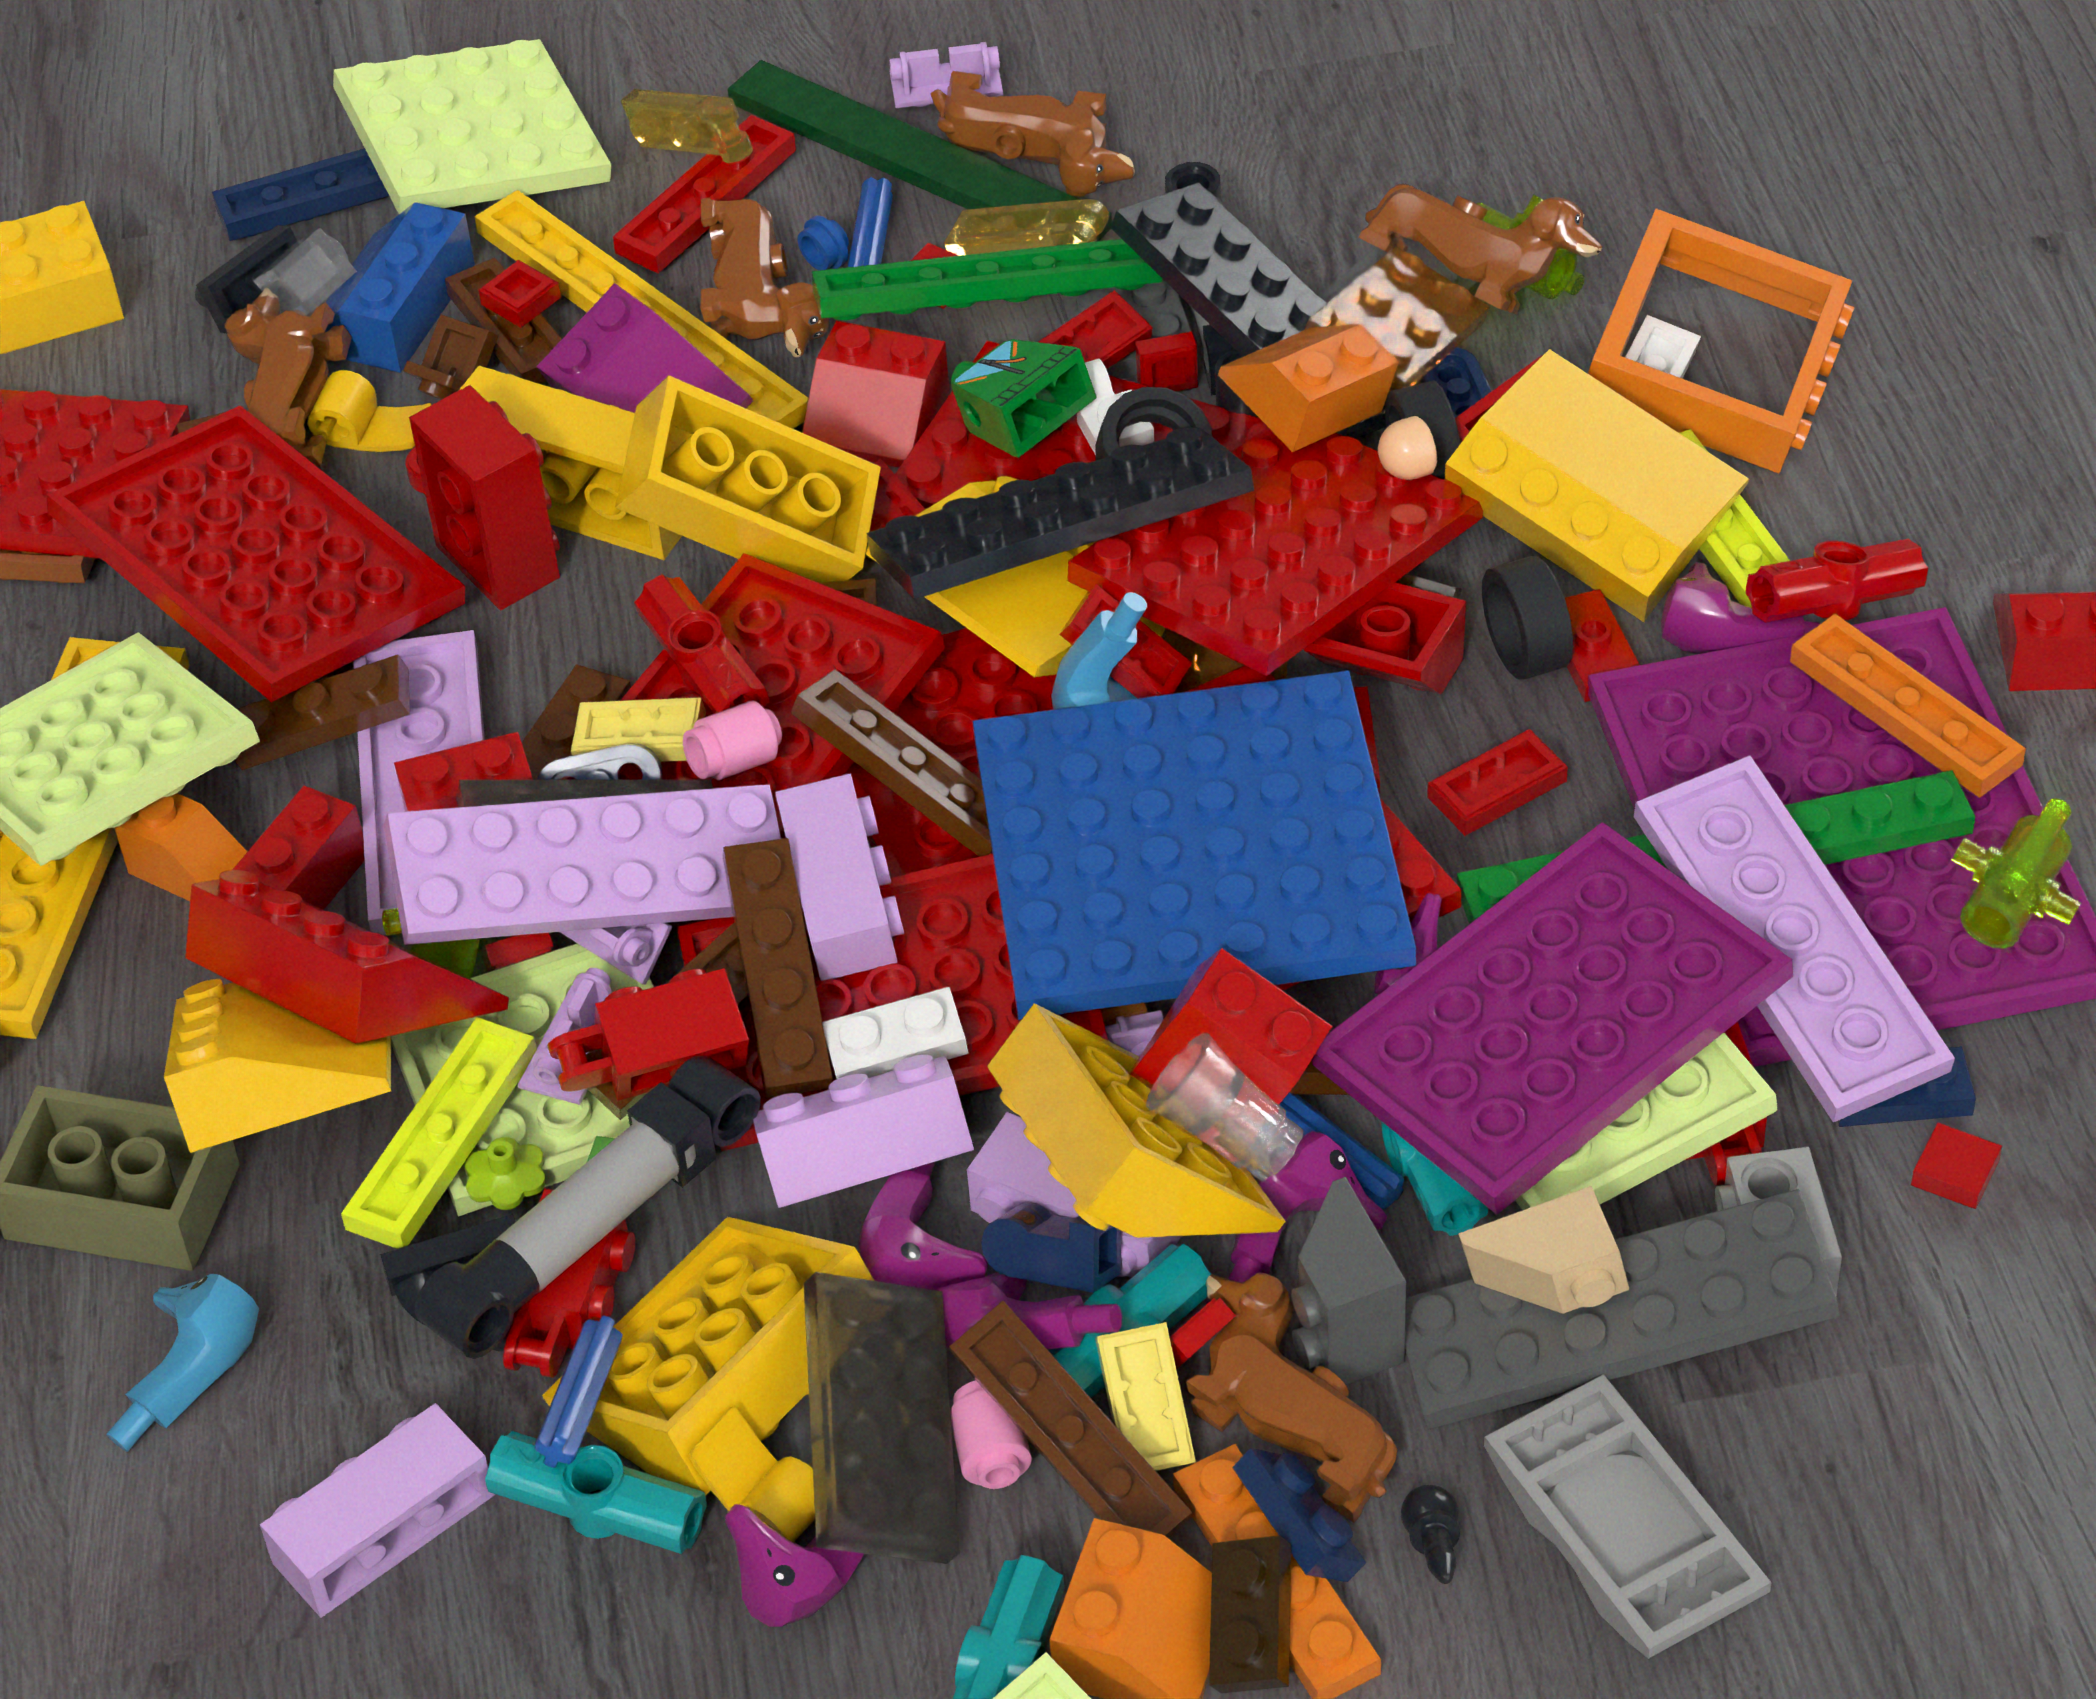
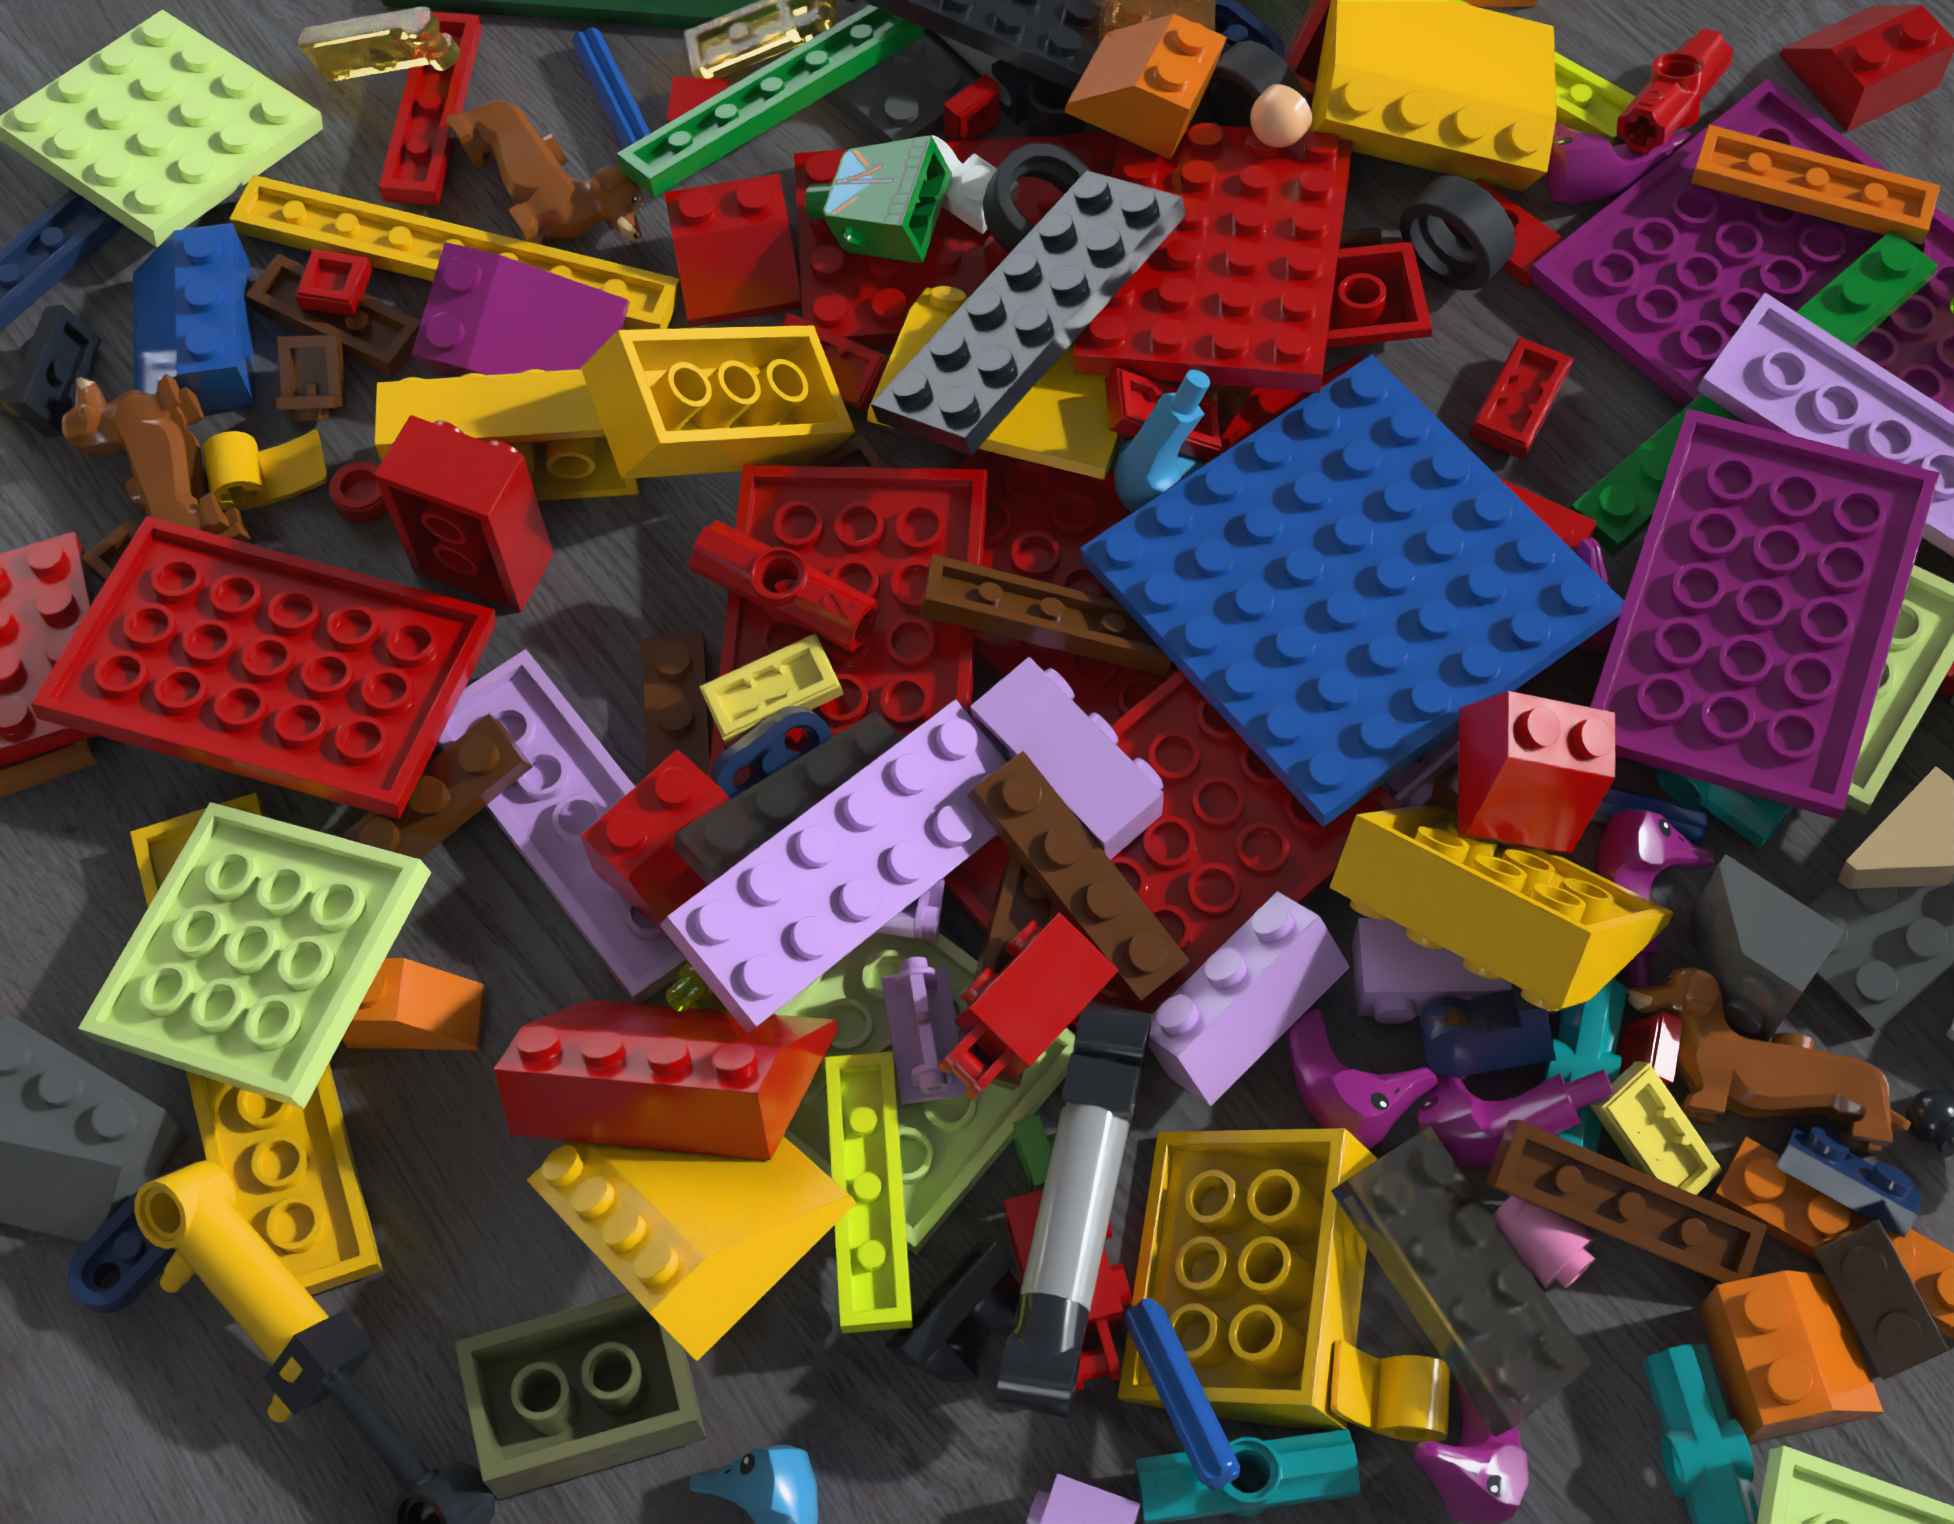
camera: 30 degrees left, 15 degrees up
(307, 272) = (107, 346): clear brick -> none
(309, 847) = (523, 961): red brick -> none
(505, 1173) = (950, 1210): lime plant -> none
(732, 741) = (878, 666): bright pink brick -> none
(823, 243) = (580, 115): blue plate -> none
(886, 1034) = (1217, 891): white plate -> none
(1103, 330) = (906, 107): red plate -> none
(1224, 1109) = (1564, 833): clear plant -> none

